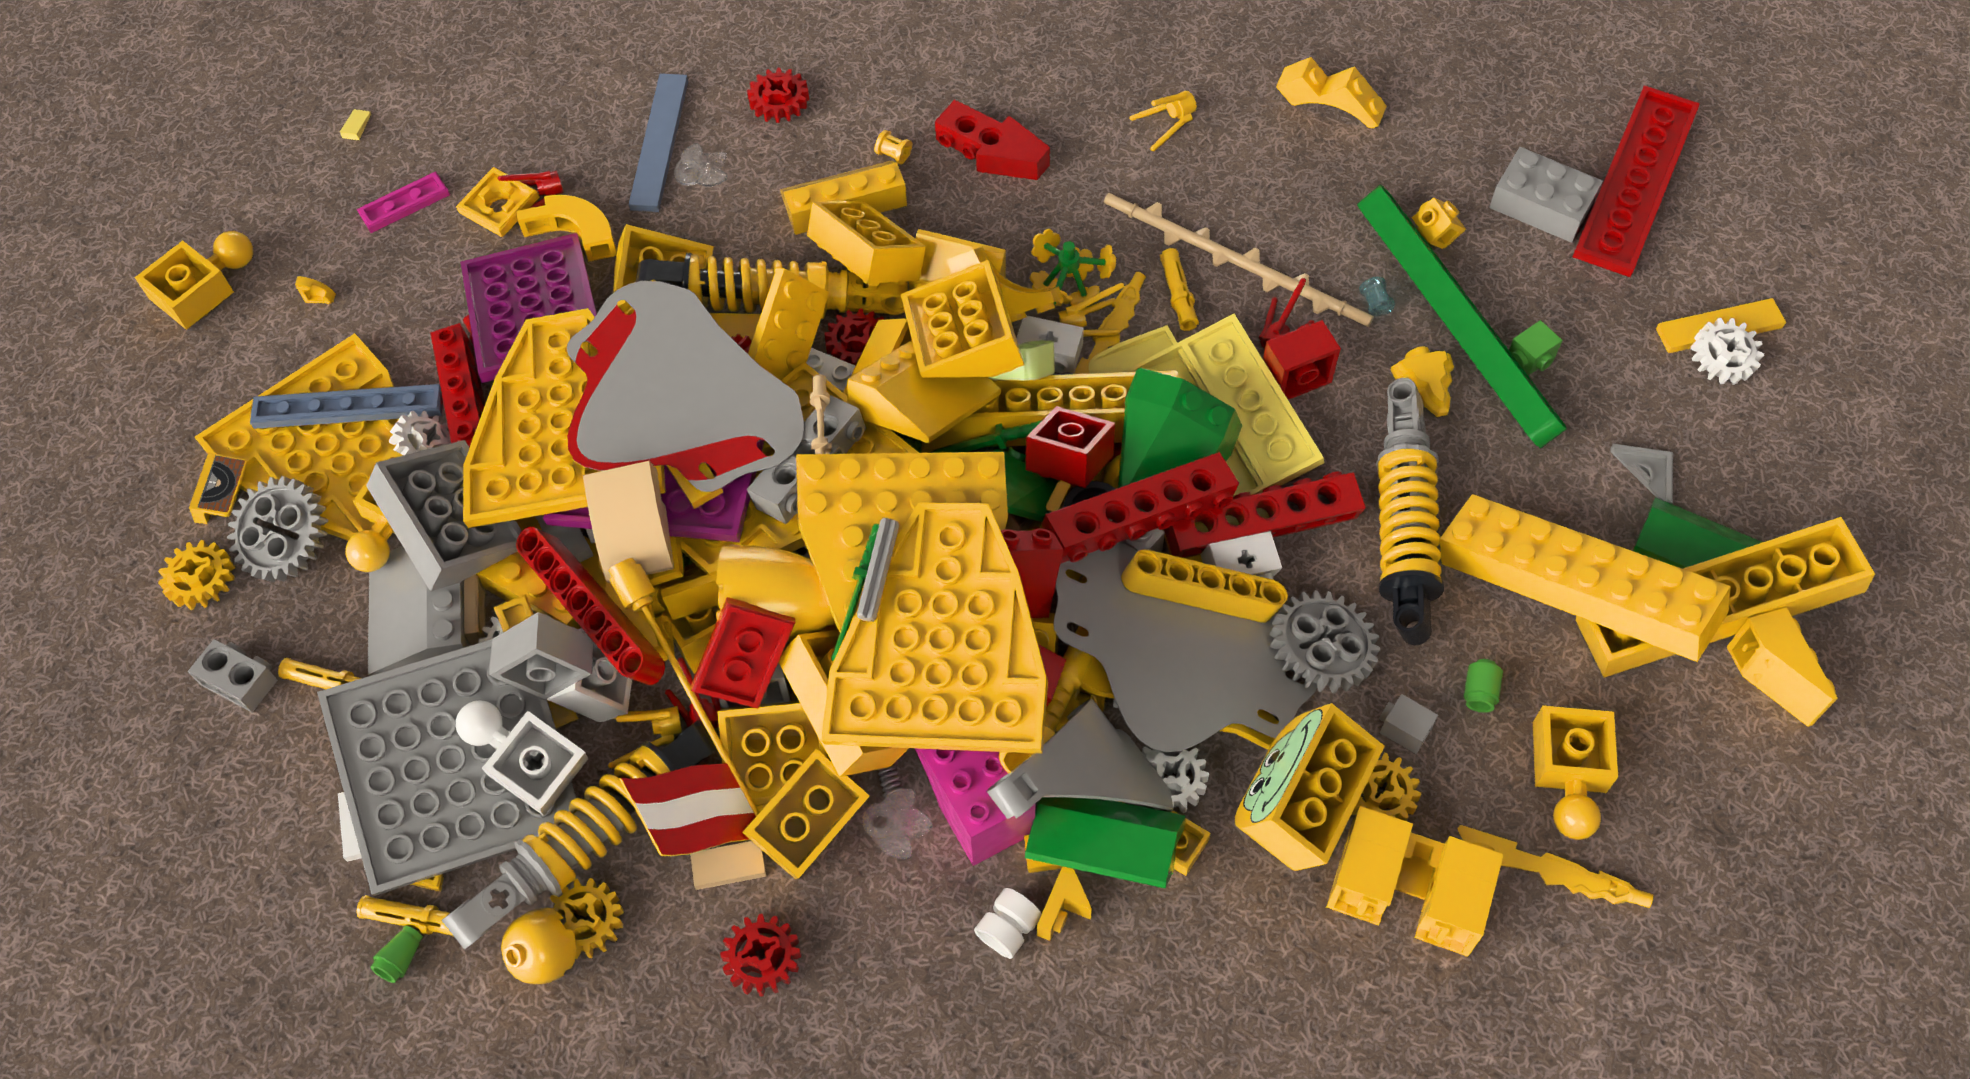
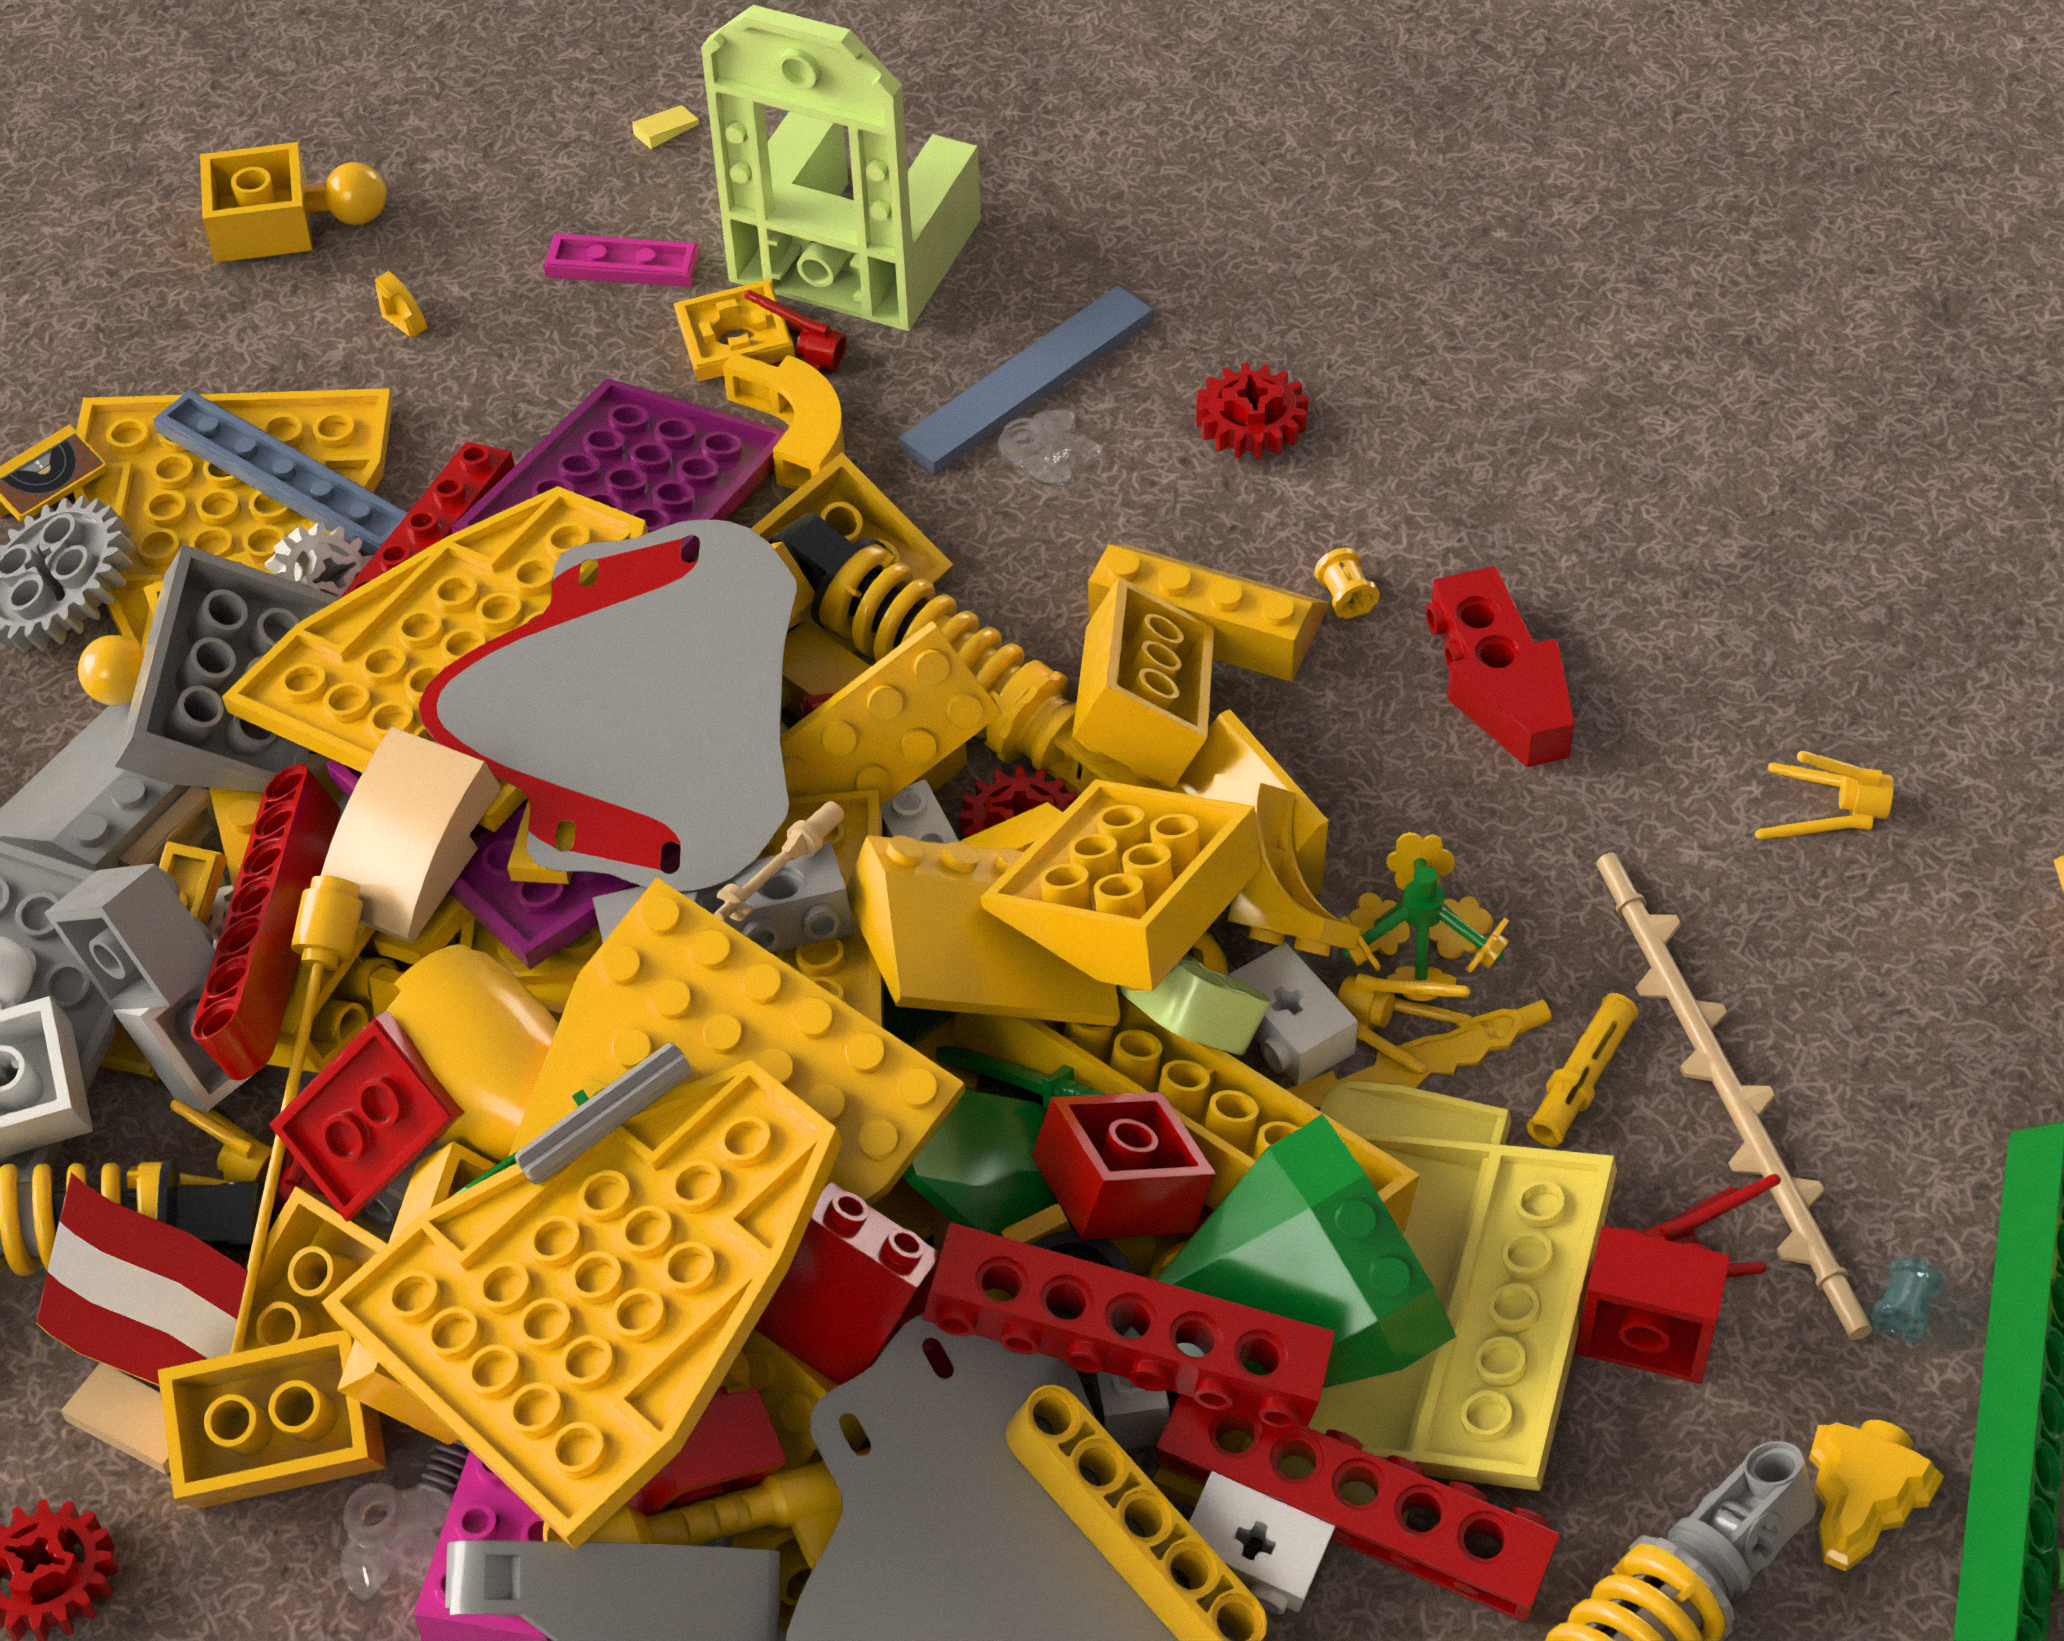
camera: 40 degrees right, 10 degrees down
(505, 134) = (783, 194): none -> yellowish green bracket

